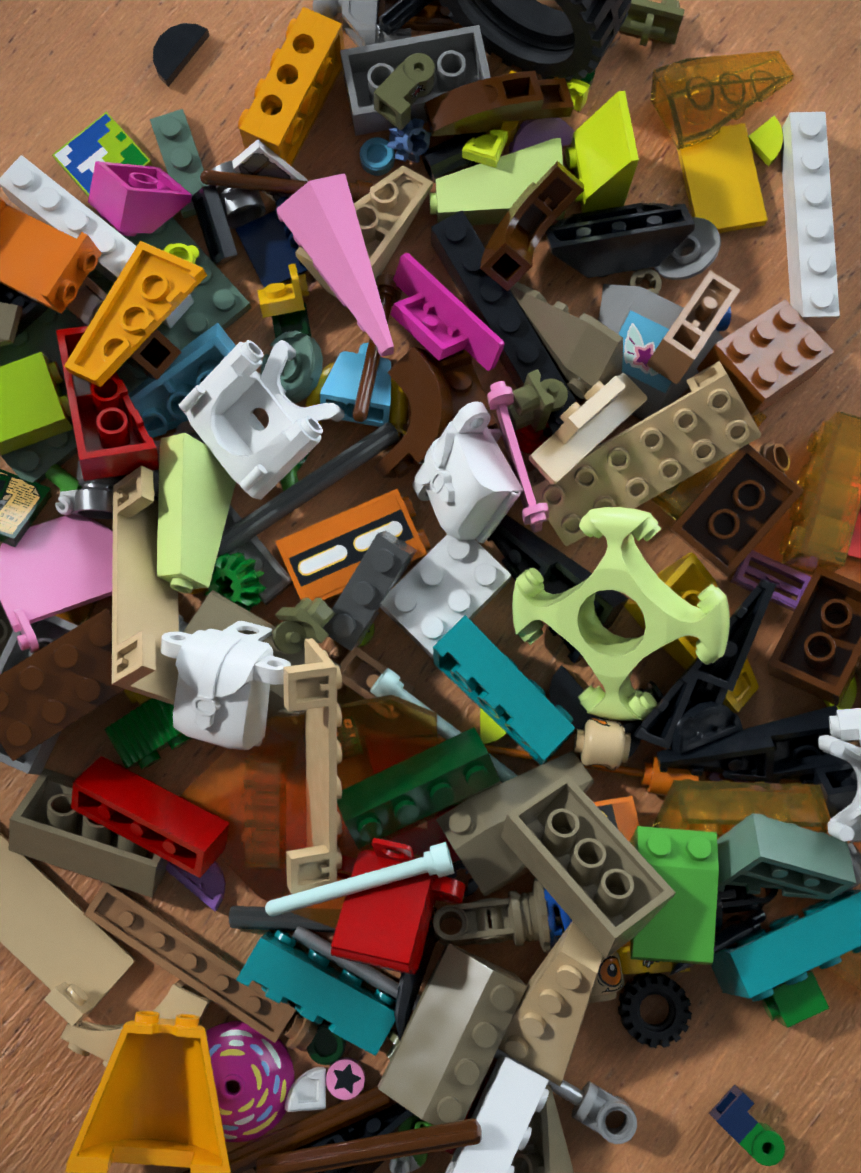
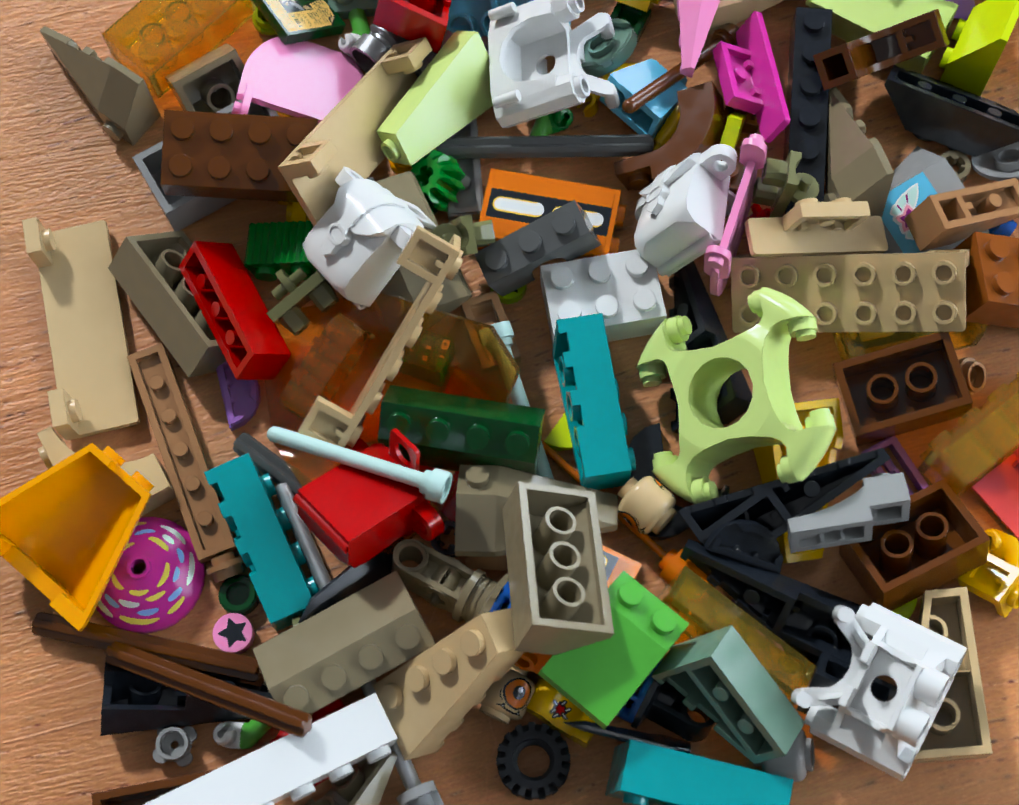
camera: 40 degrees right, 10 degrees down
(200, 786) = (288, 310): none -> olive hips
(308, 1091) = (195, 622): white tile -> none
(457, 379) = (733, 129): none -> neon yellow tile
(786, 620) = (879, 502): none -> light grey slope

